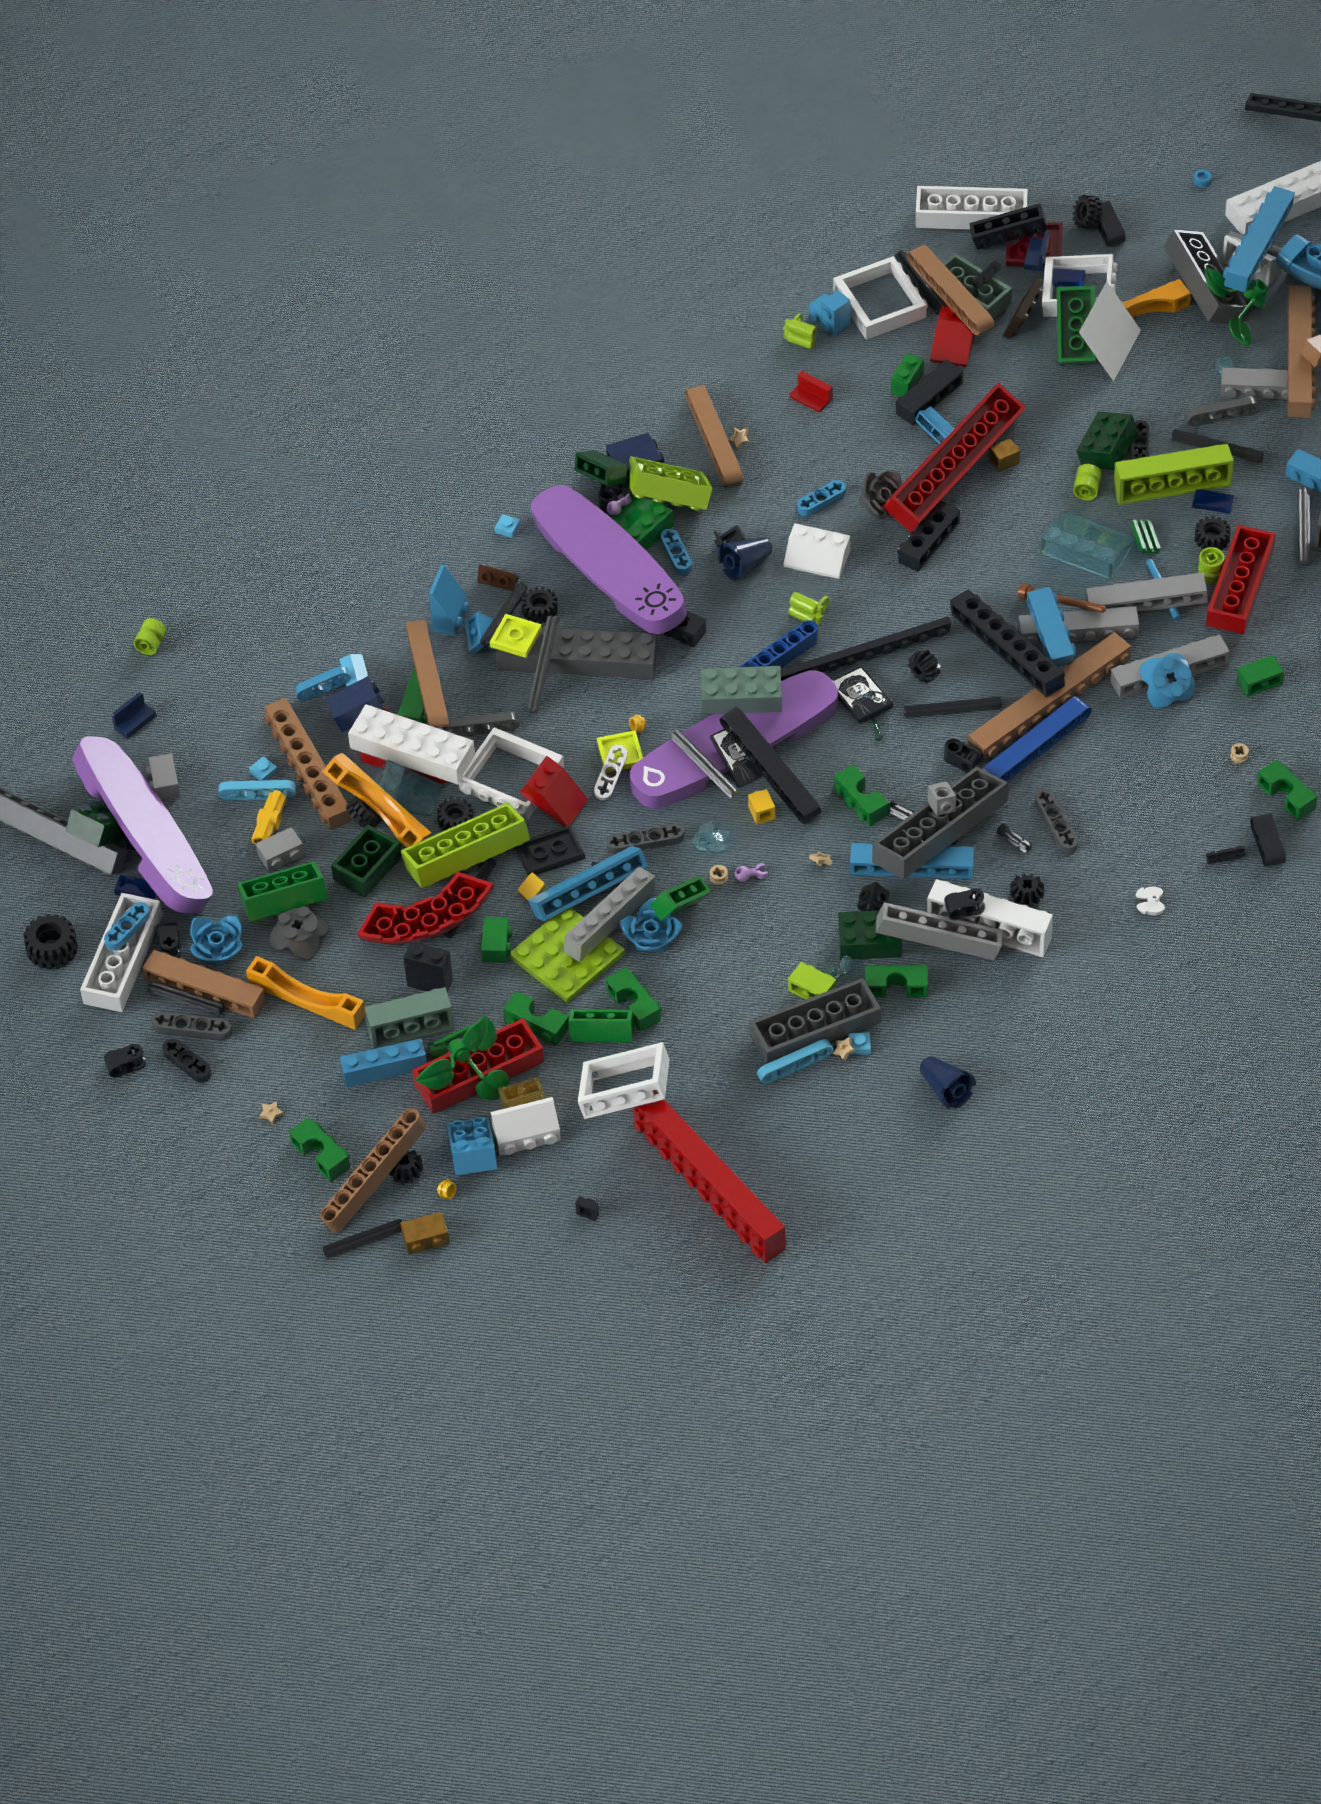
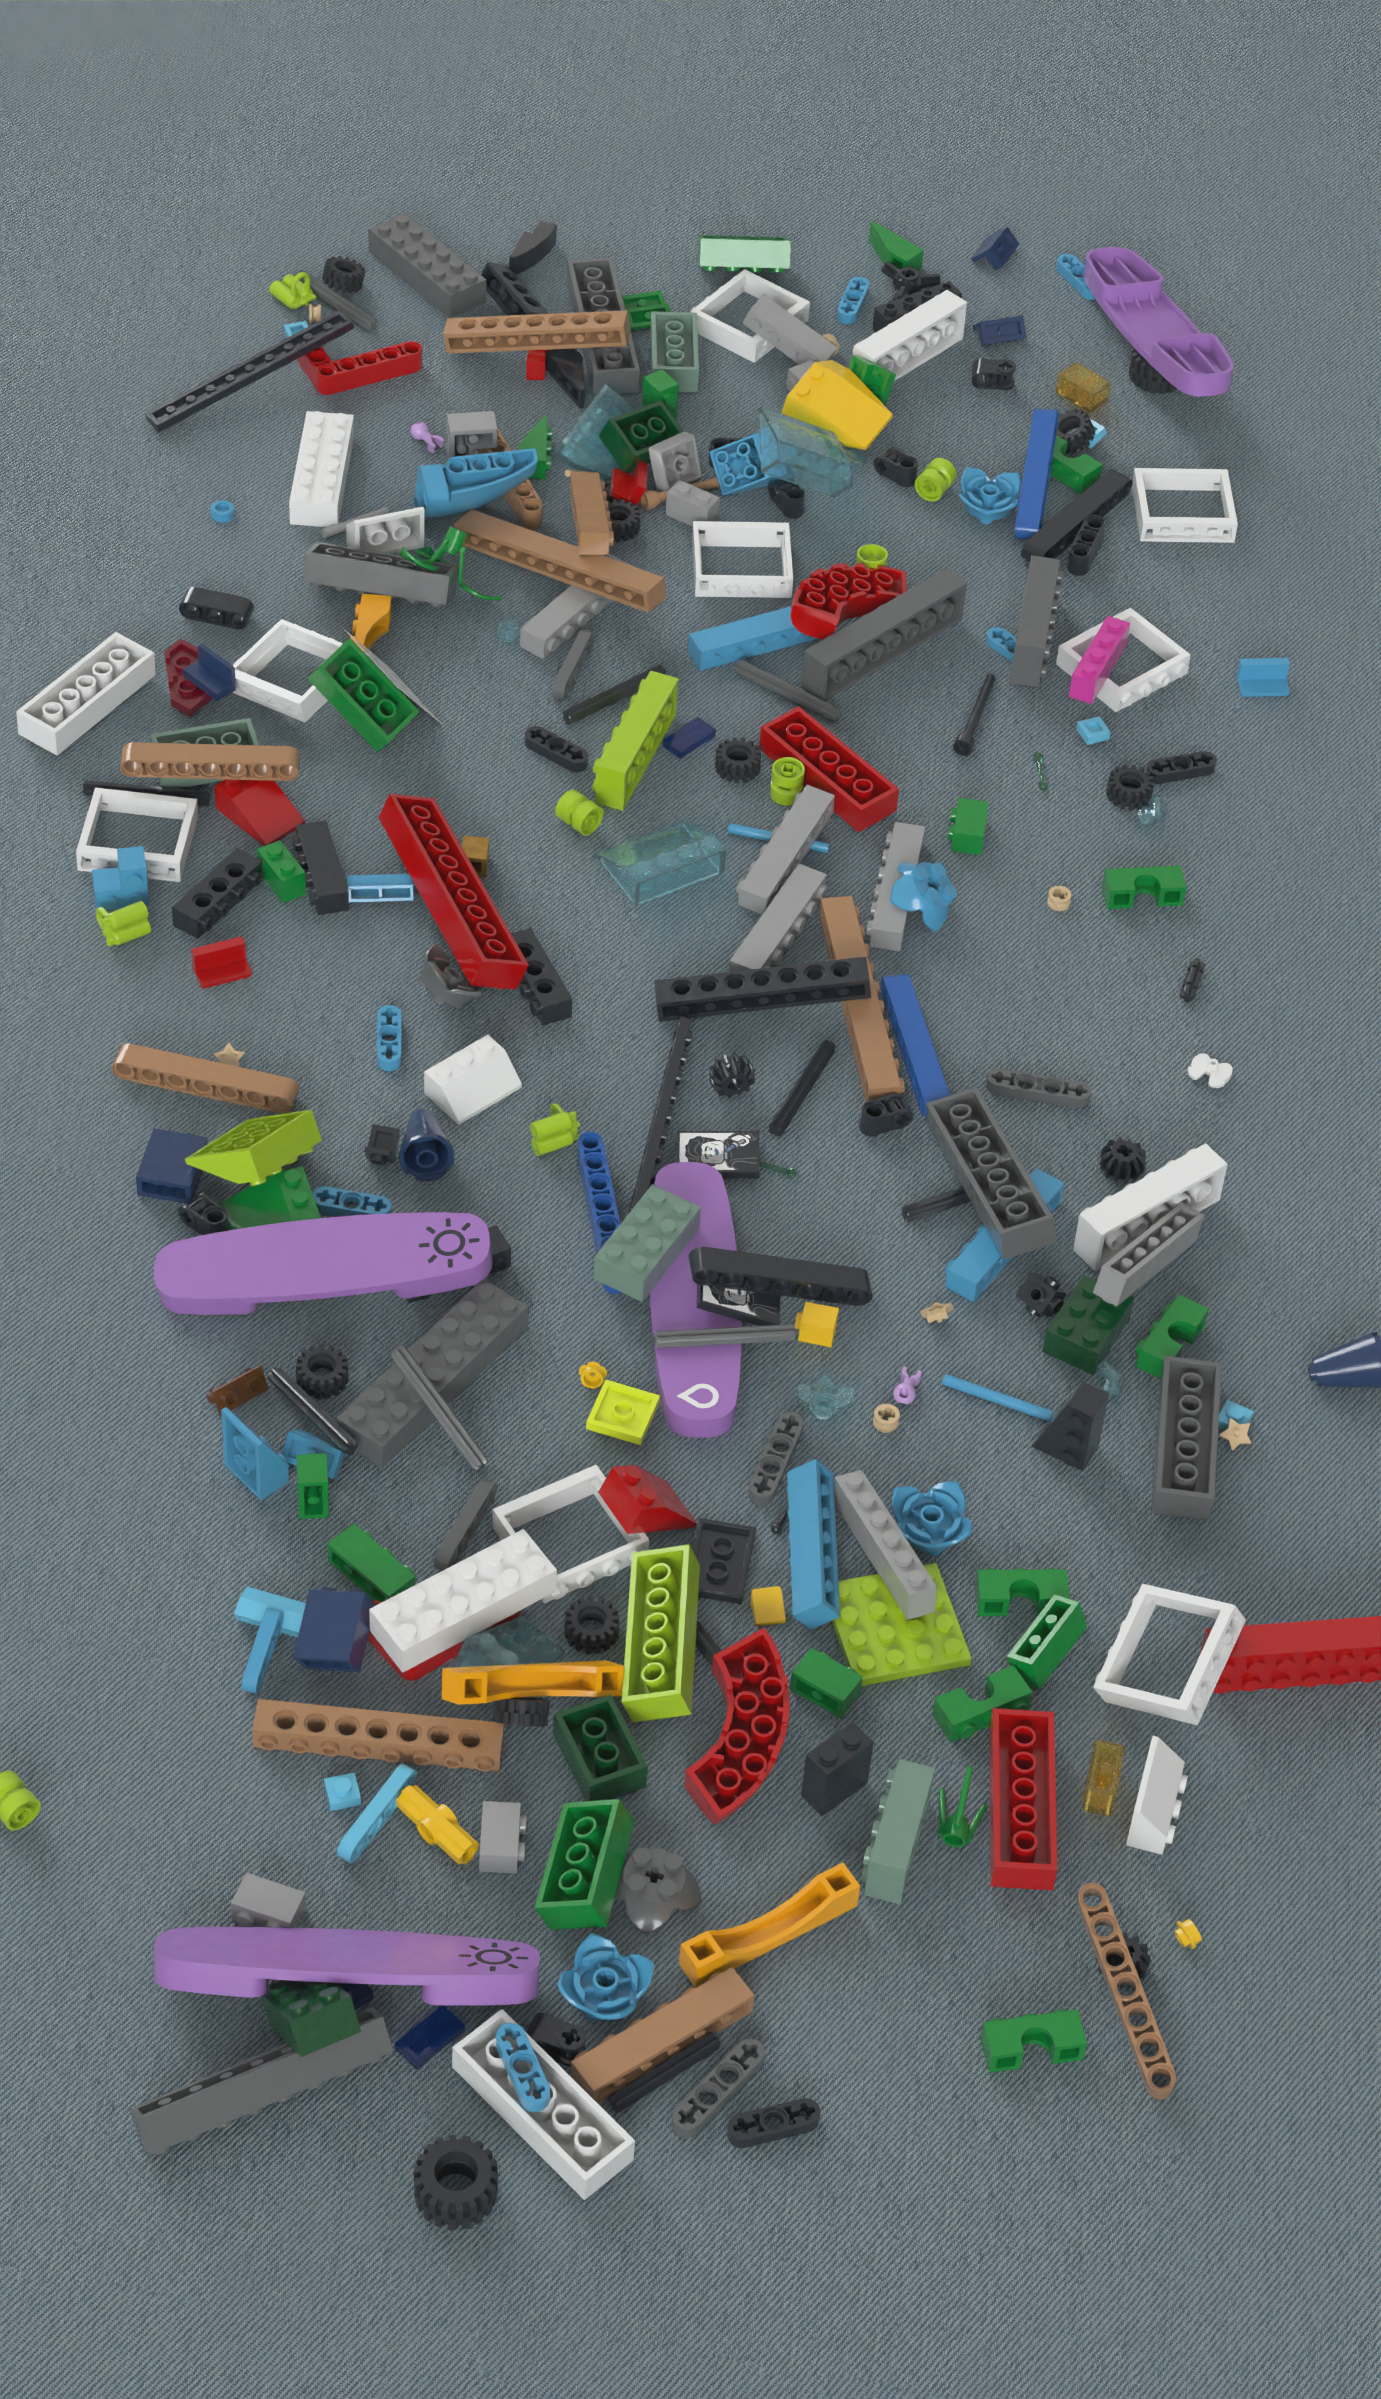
camera: 65 degrees left, 5 degrees down
(124, 1061) = (725, 2197): black piece -> none
(132, 716) = (132, 1892): dark blue panel -> none
(270, 1112) = (925, 2069): tan piece -> none
(362, 1238) = (1205, 2066): black axle -> none
(382, 1062) = (941, 1899): dark azure brick -> none
(425, 1233) = (1246, 1991): pearl gold brick -> none
(427, 673) = (357, 1528): medium nougat beam -> none
(447, 641) = (312, 1486): none -> green brick
(472, 1146) = (1138, 1870): dark azure slope -> none
(479, 1036) = (1015, 1794): green plant -> none
(507, 526) = (160, 1340): medium azure plate -> none
(515, 635) = (380, 1406): neon yellow plate -> none
(587, 1208) = (1315, 1800): black plate -> none
(600, 467) = (172, 1197): dark green brick -> none
(614, 507) = (236, 1218): lavender arm -> none
(621, 760) = (656, 1423): white beam -> none
(680, 898) = (918, 1461): green brick -> none
(768, 962) = (1076, 1427): none -> black wedge
(780, 920) = (997, 1397): none -> dark azure bar
(795, 1061) = (1225, 1489): medium azure beam -> none
(809, 982) = (1128, 1414): lime brick -> none
(864, 358) = (217, 893): none -> black brick
(869, 807) = (851, 1232): green arch -> none
(941, 798) = (976, 1144): light grey brick -> none
(963, 904) = (1145, 1202): black piece -> none
(986, 274) = (213, 724): black axle -> none
(1008, 226) = (154, 675): black brick -> none
(1014, 838) = (1035, 1134): black axle -> none
(1024, 588) = (691, 941): dark orange piece -> none
(1026, 304) = (280, 723): dark brown plate -> none
(1050, 626) = (782, 936): dark azure brick -> none
(1068, 277) = (273, 671): clear blue tile -> none
(1087, 211) = (181, 618): black tyre -> none
(1107, 439) = (538, 765): dark green brick -> none
(1148, 535) = (693, 811): green tile -> none
(1258, 239) = (392, 497): dark azure brick -> none
(1267, 839) = (1200, 936): black beam -> none

